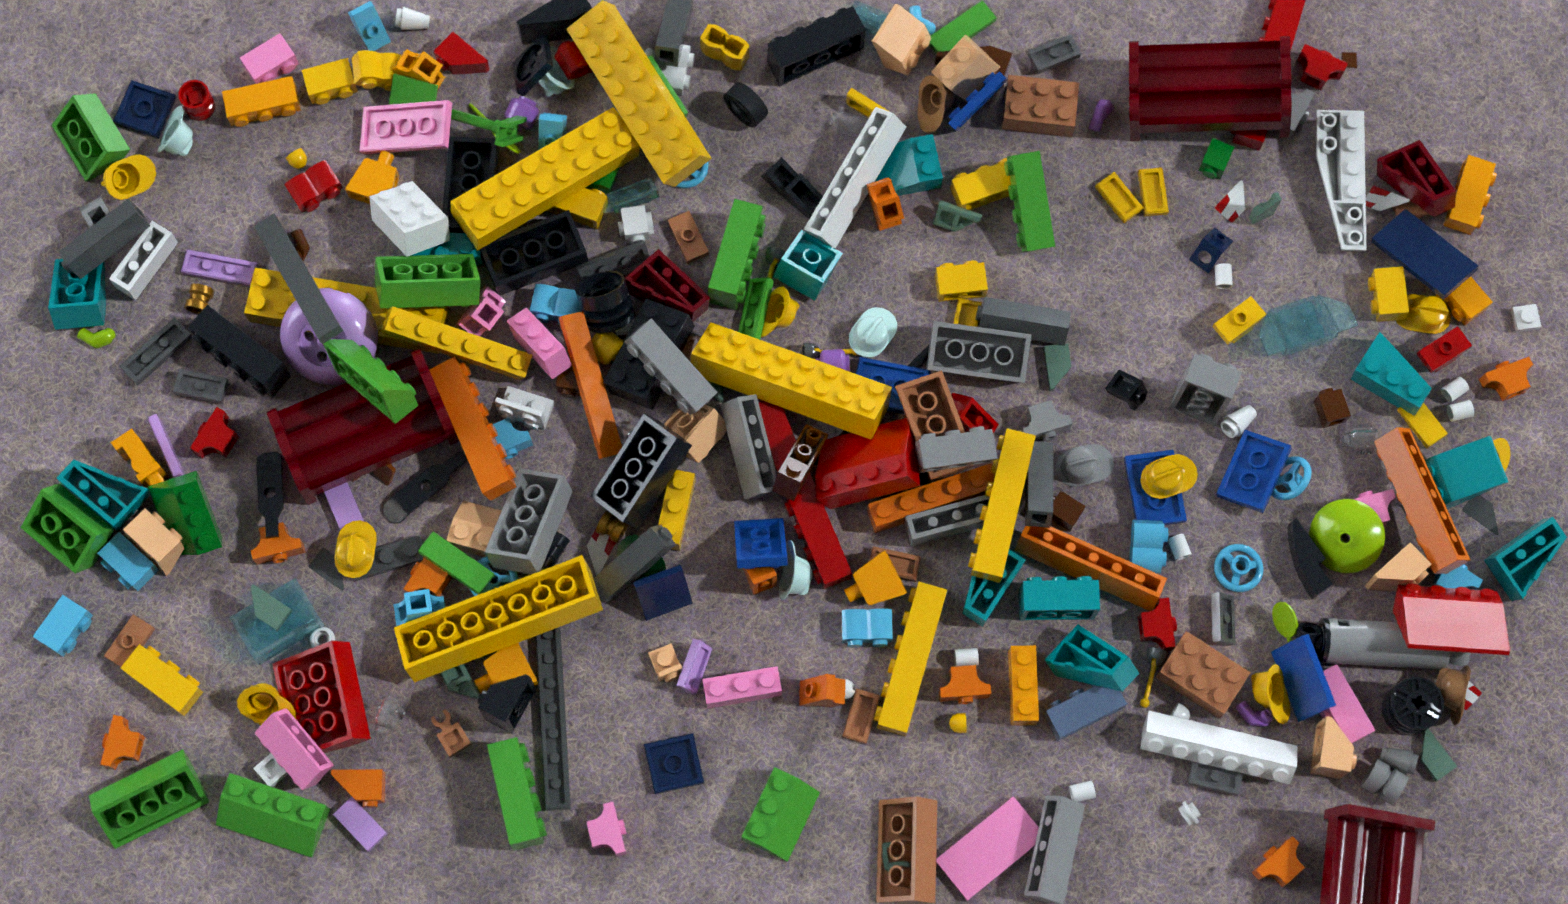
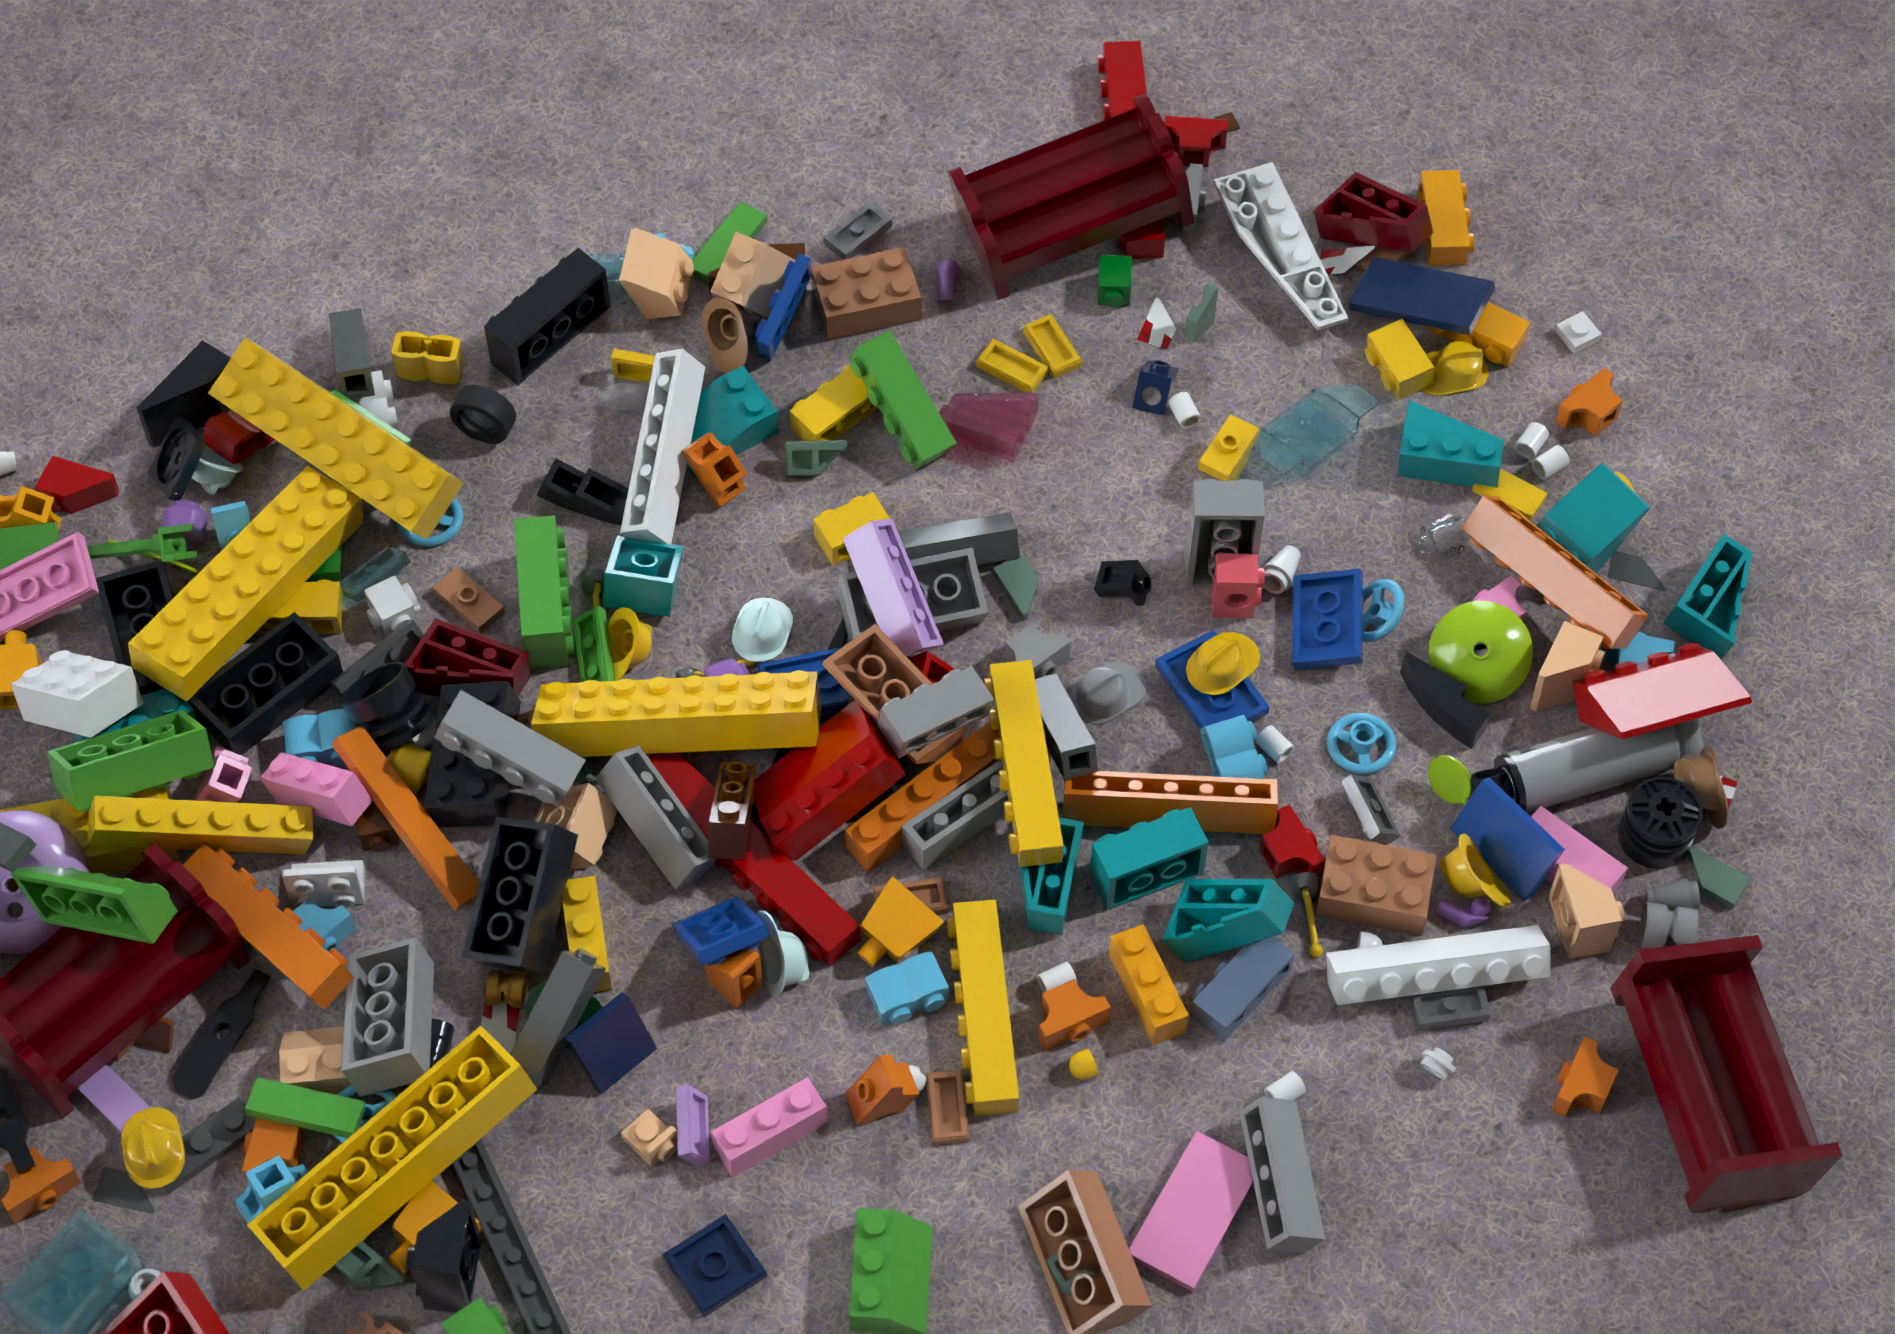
camera: 20 degrees left, 15 degrees down
(269, 609) = (57, 1262): sand green tile -> none
(965, 346) = (892, 587): none -> lavender panel
(1066, 510) = (1112, 748): reddish brown brick -> none
(1086, 236) = (991, 421): none -> clear pink slope
(1201, 425) = (1236, 585): none -> coral brick
(1331, 407) = (1390, 512): reddish brown brick -> none
(1444, 350) = (1498, 397): red brick -> none

